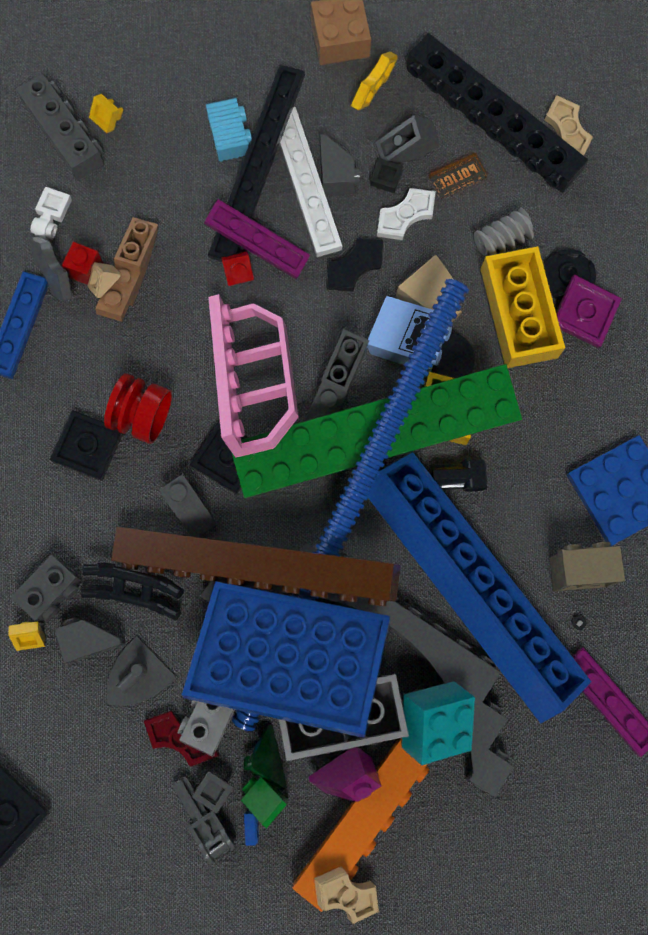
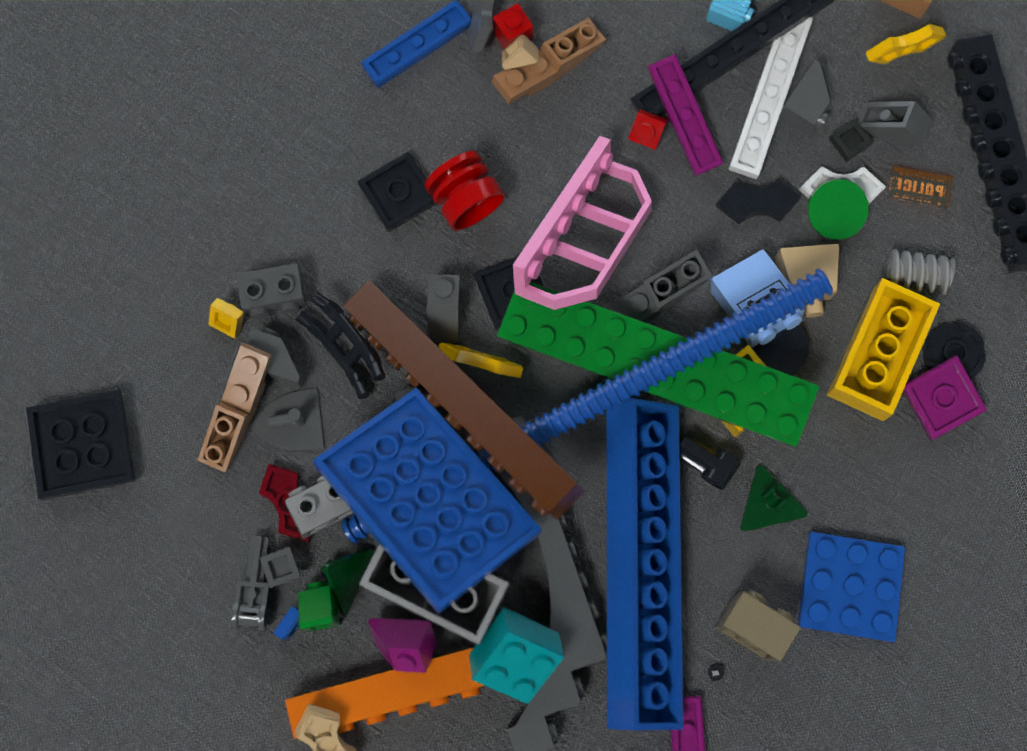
camera: 40 degrees right, 0 degrees up
(87, 698) = (236, 408): none -> medium nougat slope
(253, 521) = (482, 360): none -> yellow tile
(415, 230) = (837, 209): none -> green tile
(524, 474) = (769, 503): none -> dark green piece

